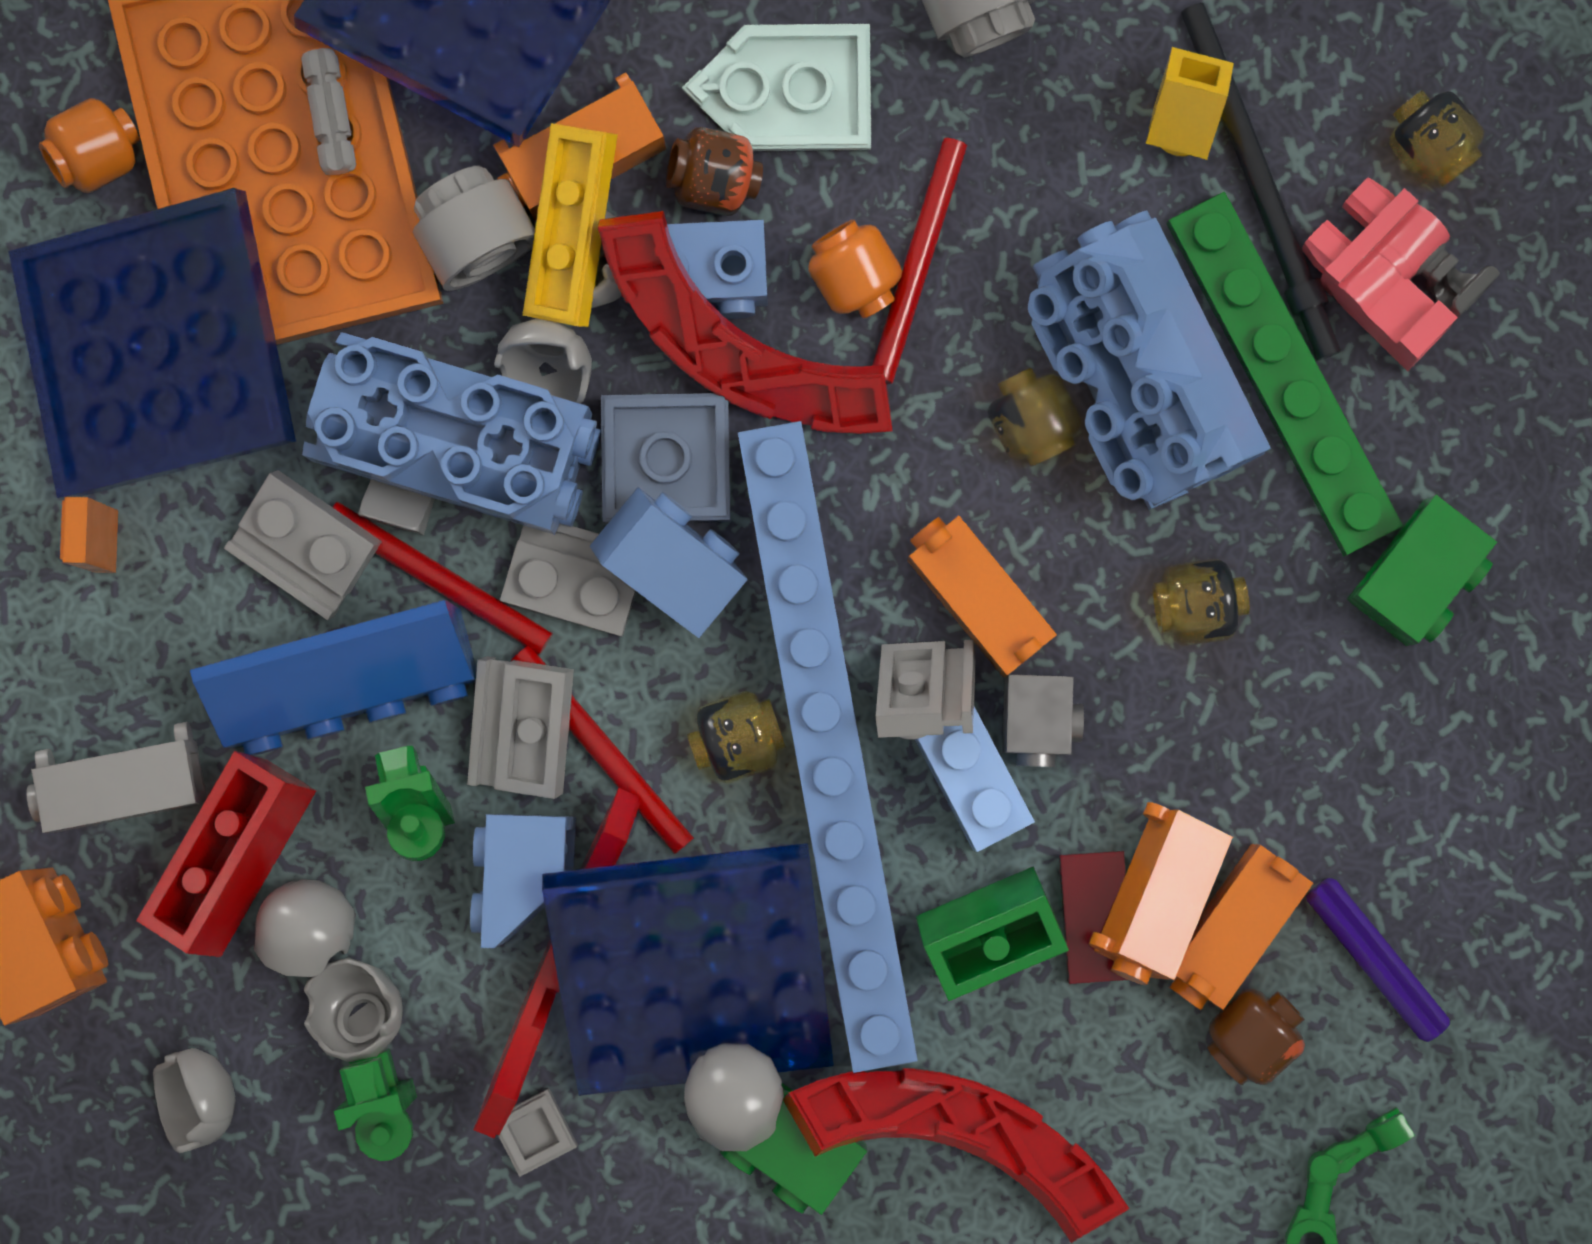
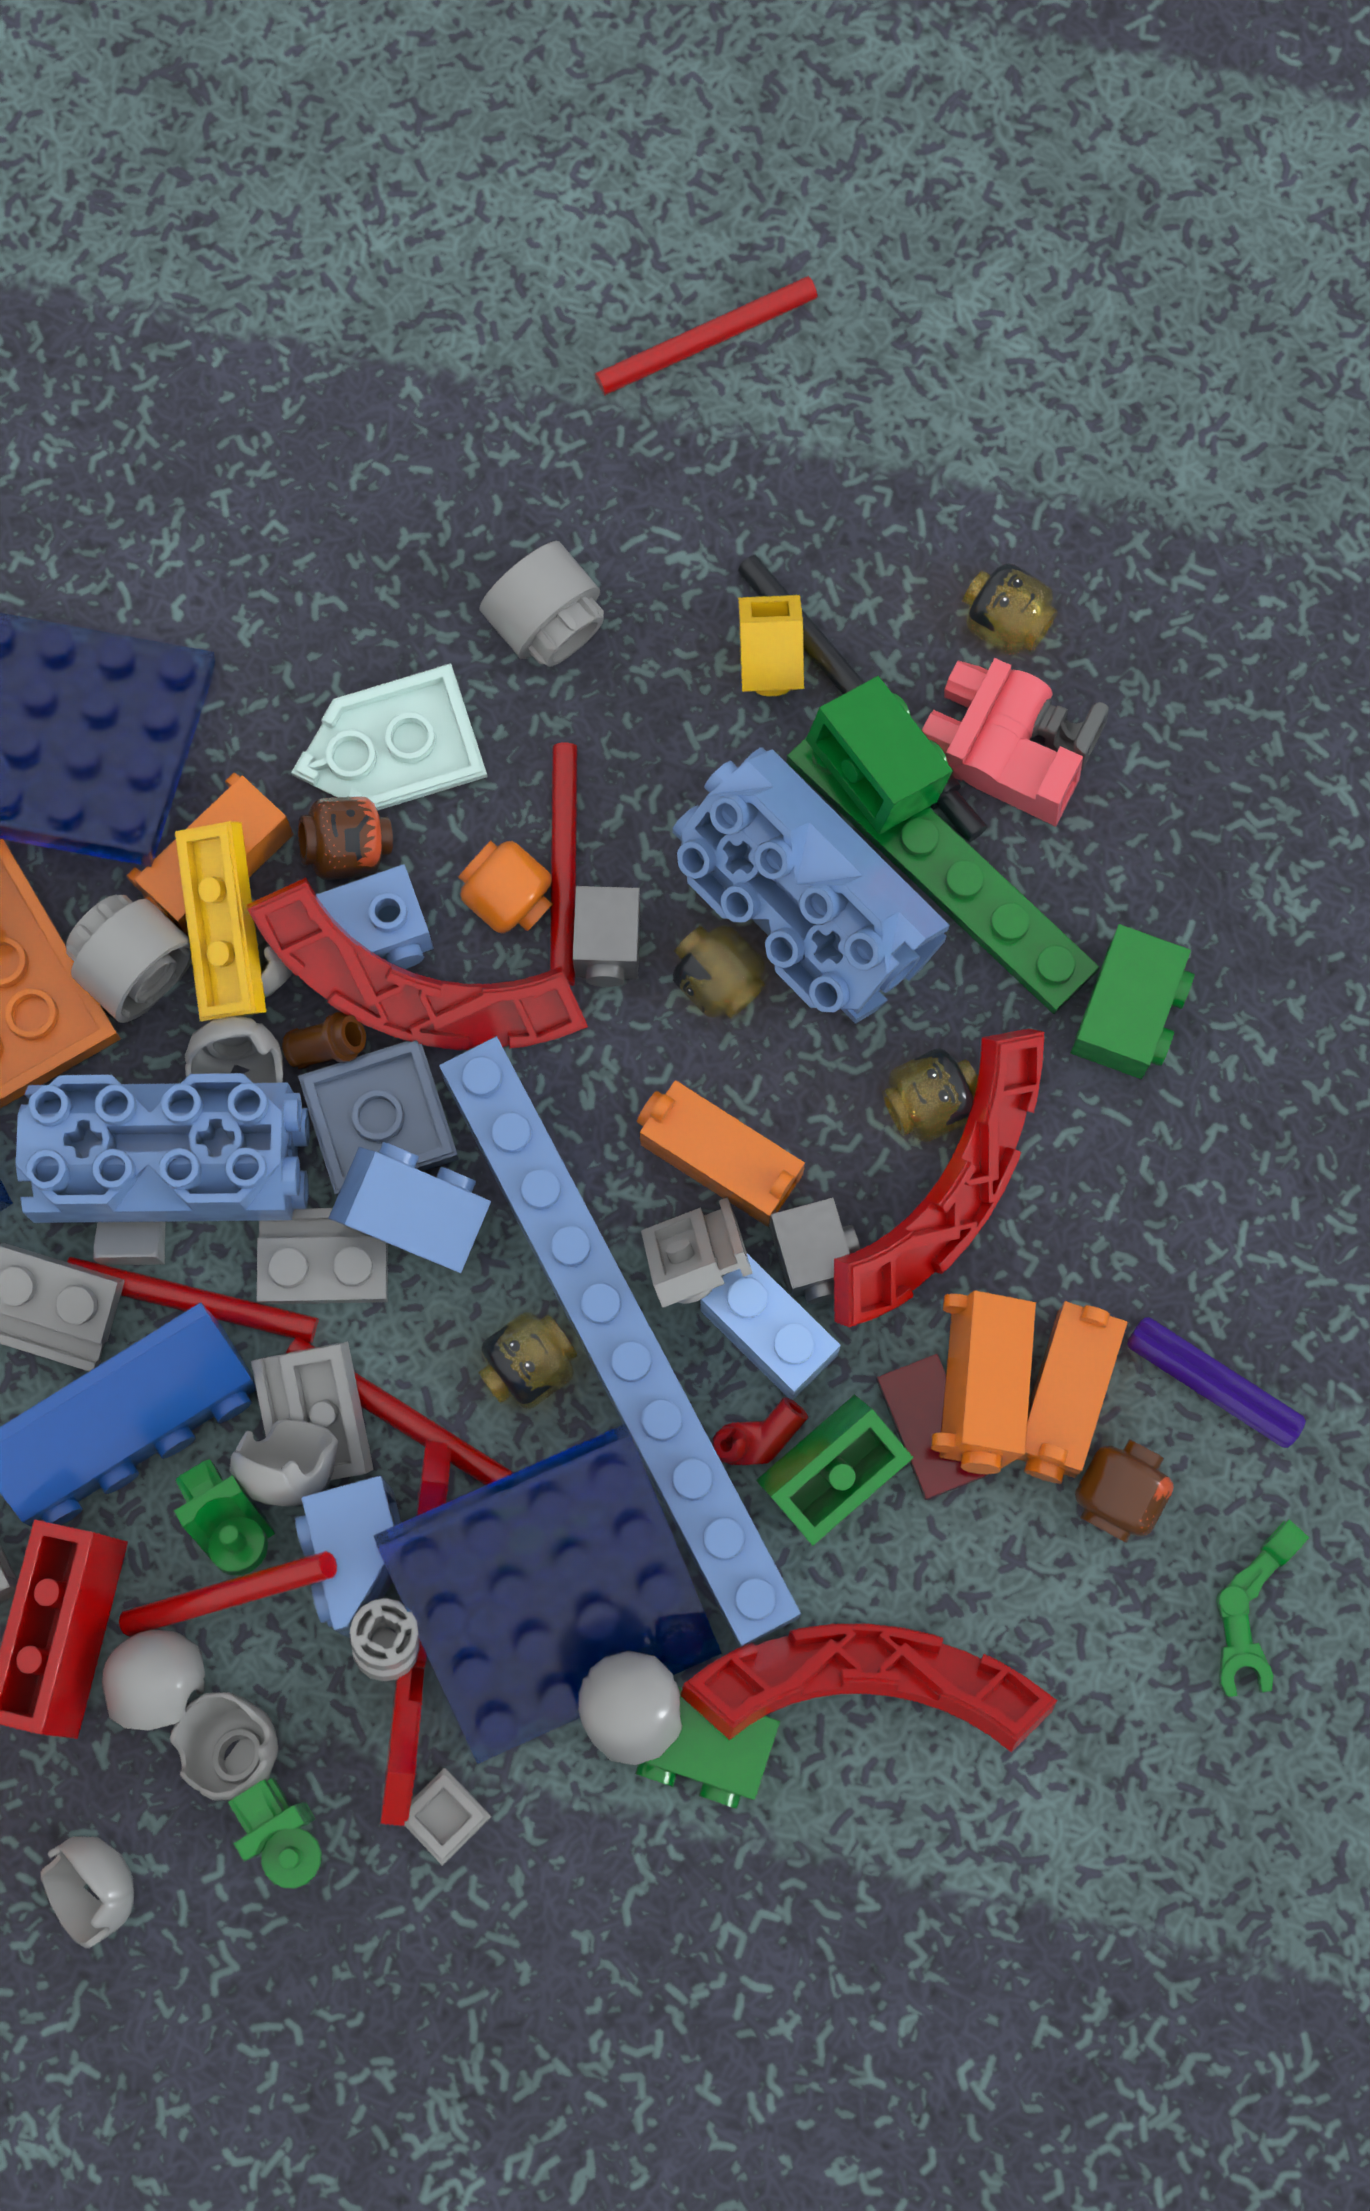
camera: 20 degrees left, 10 degrees down
(394, 876) = (229, 1593): none -> red bar
(481, 771) = (285, 1465): none -> light grey hair
(525, 977) = (389, 1653): none -> light grey wheel
(647, 371) = (336, 1038): none -> reddish brown pin
(930, 879) = (759, 1440): none -> red arm
(937, 349) = (606, 934): none -> flat silver brick
(1197, 711) = (963, 1197): none -> red tile
(1259, 252) = (879, 754): none -> green brick

